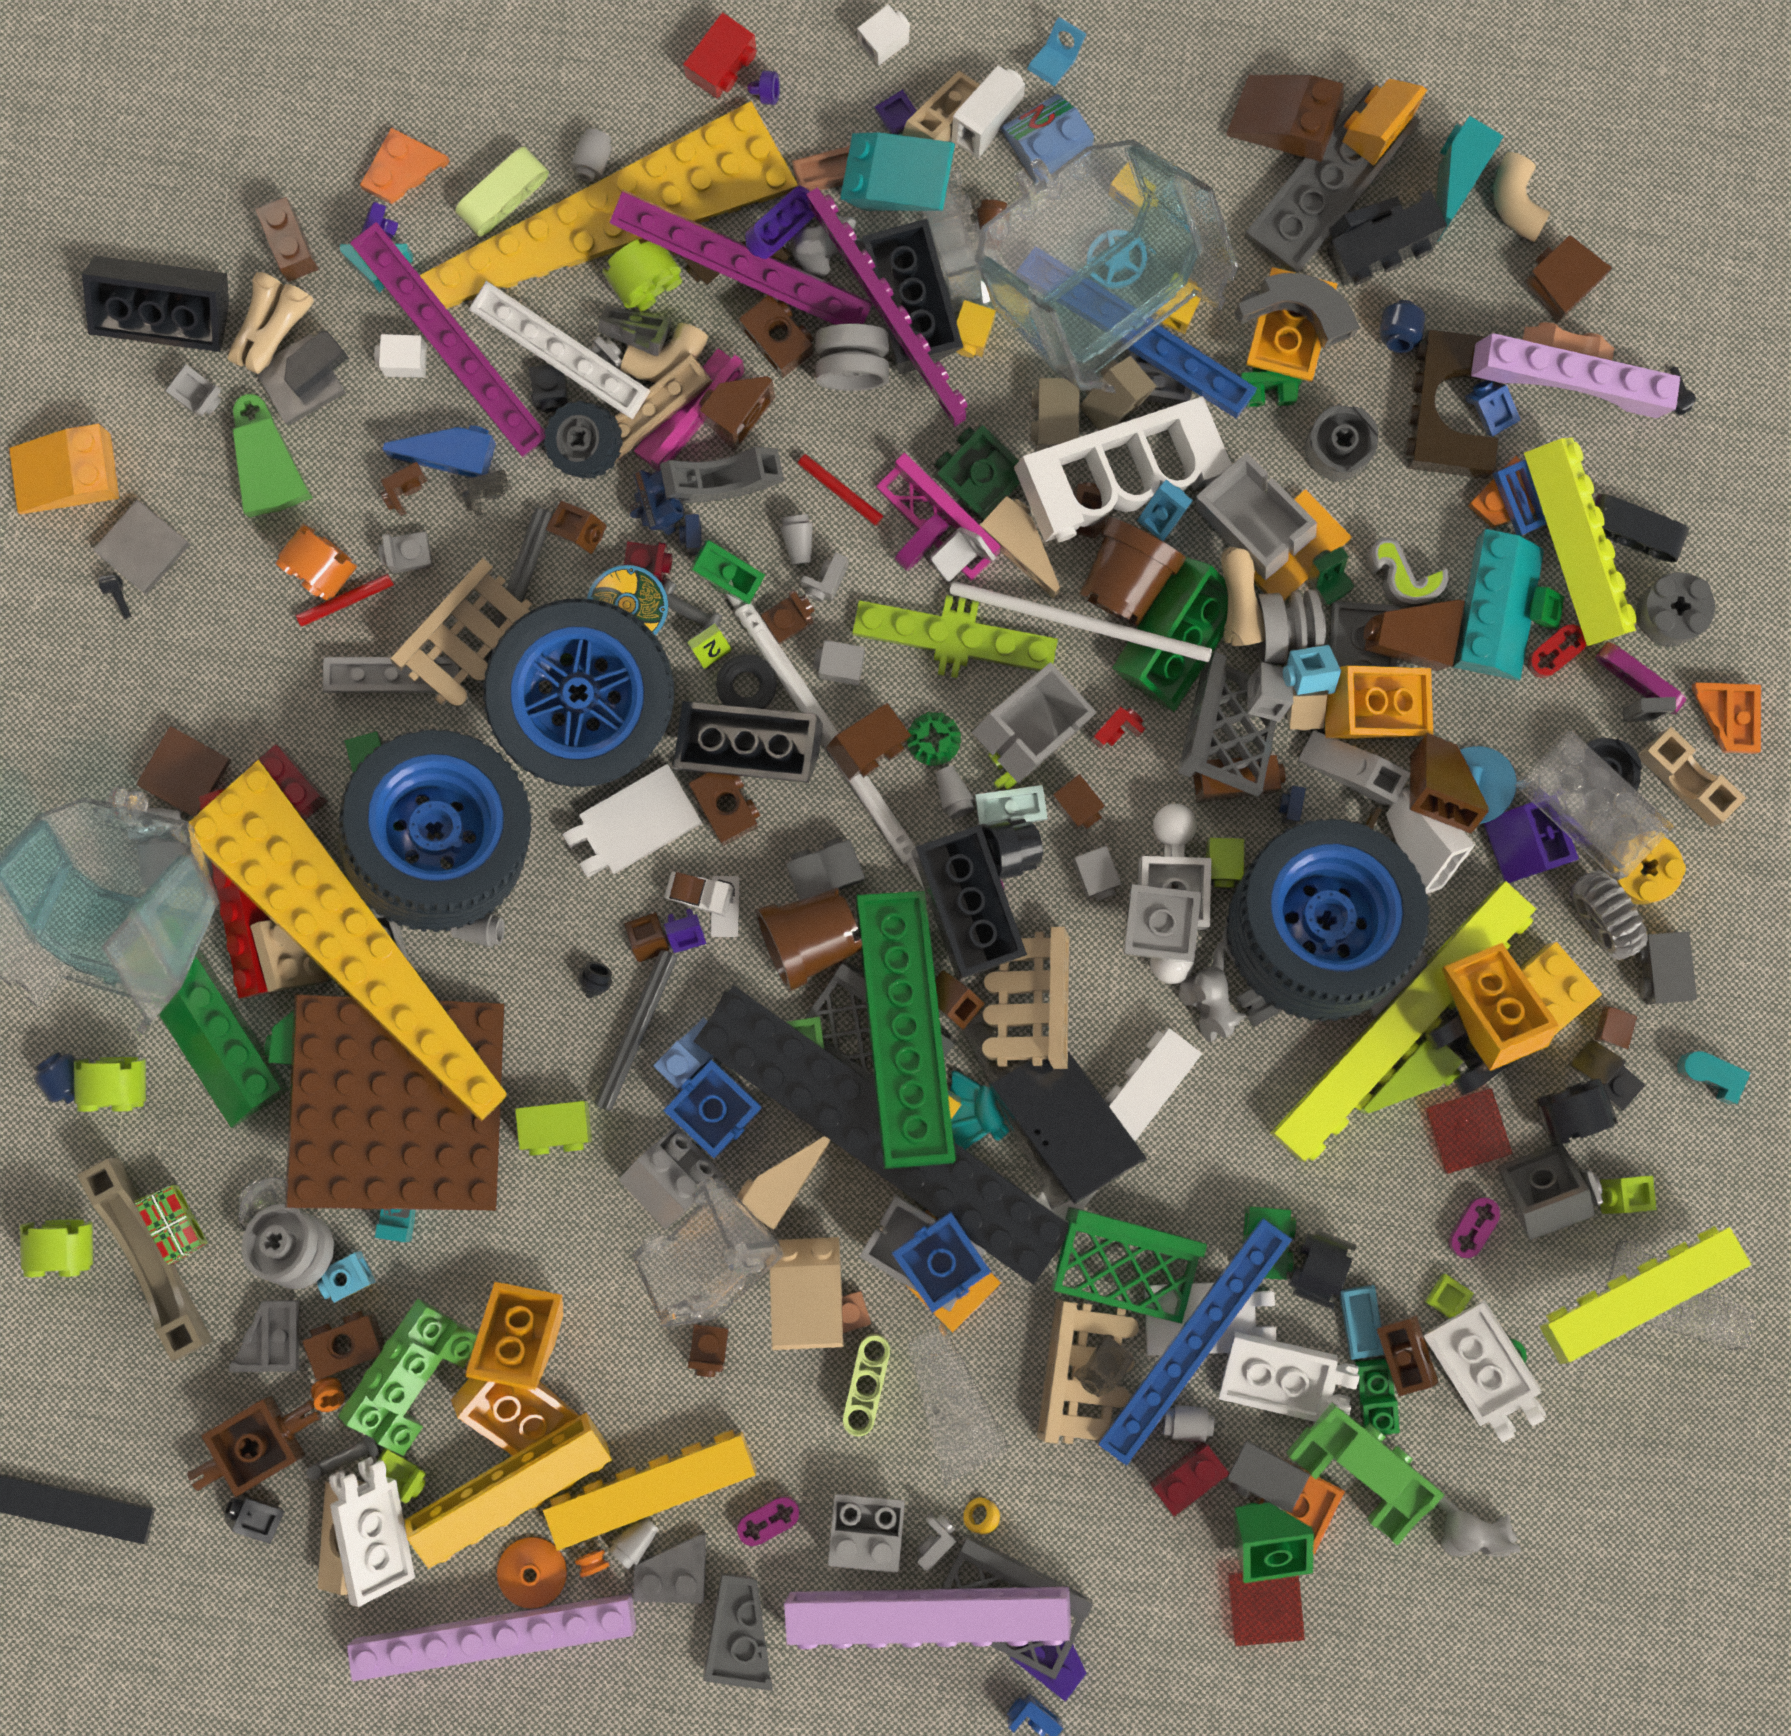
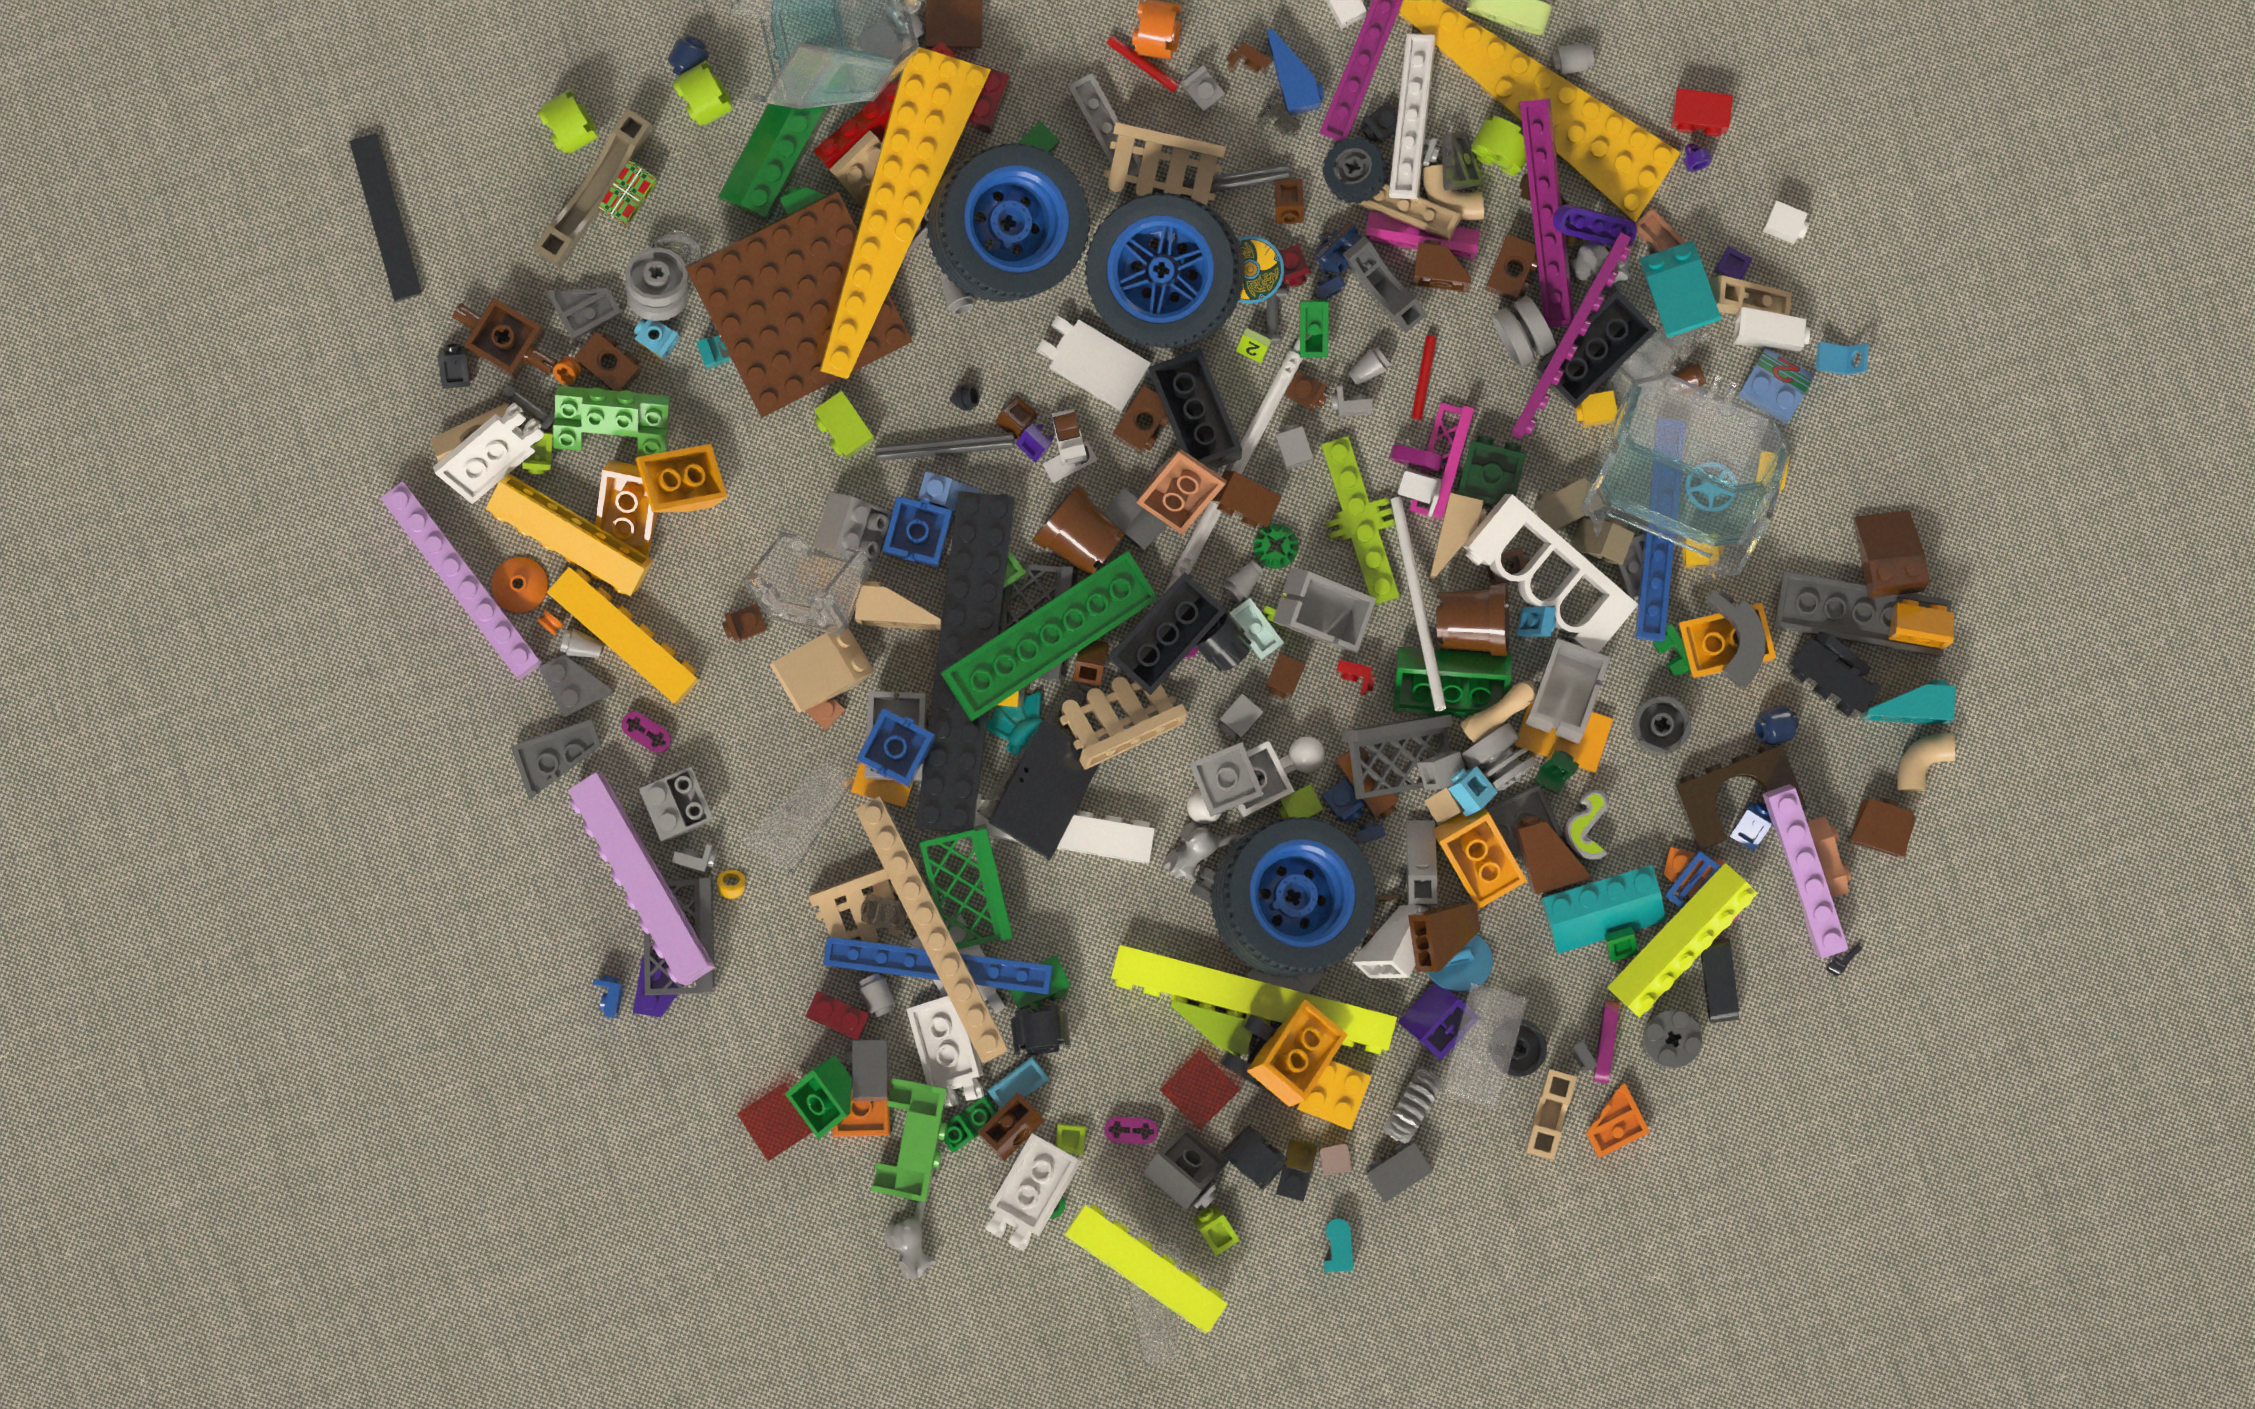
camera: 65 degrees right, 0 degrees up
(751, 664) = (1246, 371): black tyre -> none
(824, 804) = (1180, 491): none -> nougat slope
(866, 1401) = (766, 746): yellowish green beam -> none
(1155, 1328) = (931, 930): none -> tan plate
(1244, 814) = (1343, 802): none -> blue bracket
(1552, 645) = (1596, 963): red beam -> none
(1662, 878) = (1455, 1133): yellow brick -> none

